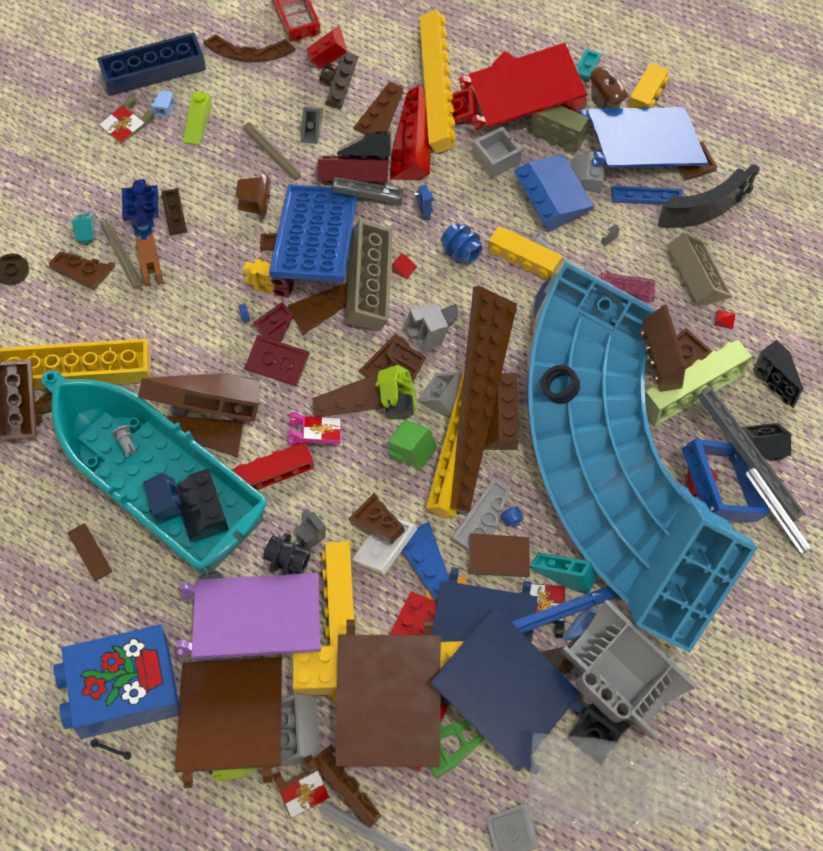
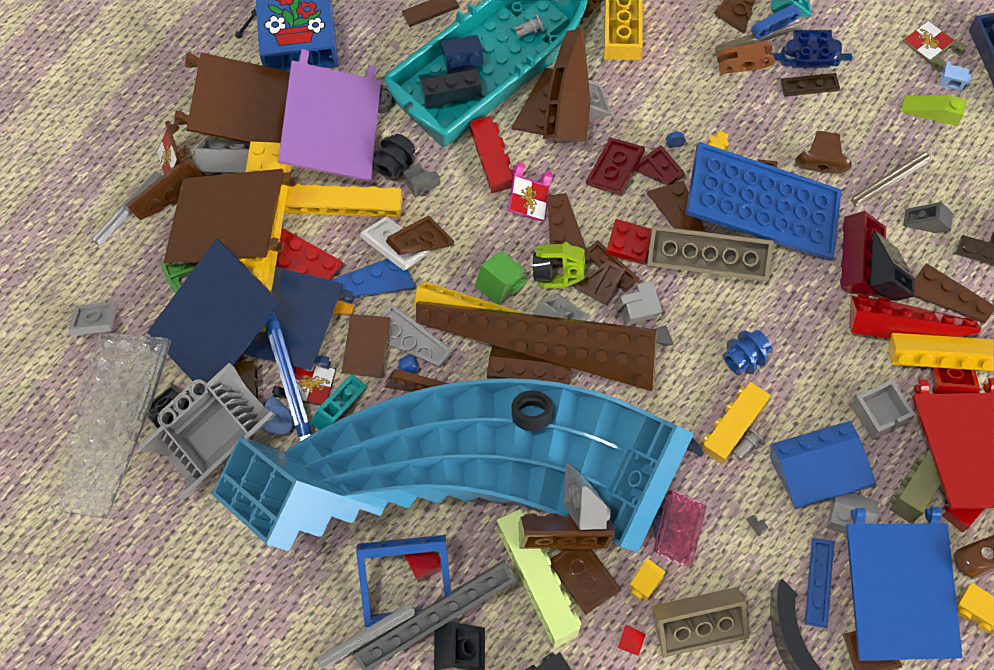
camera: 100 degrees right, 5 degrees up
(109, 233) = (775, 21): none -> blue beam
(358, 343) = (629, 241): none -> red plate
(367, 190) = (829, 266): dark grey tile -> none
(403, 266) = (726, 295): red slope -> none
(424, 201) = (810, 319): blue wing -> none
(535, 498) = (410, 382): none -> reddish brown wing
(640, 334) = (583, 501): none -> light grey slope
(679, 305) = (646, 580): none -> yellow slope

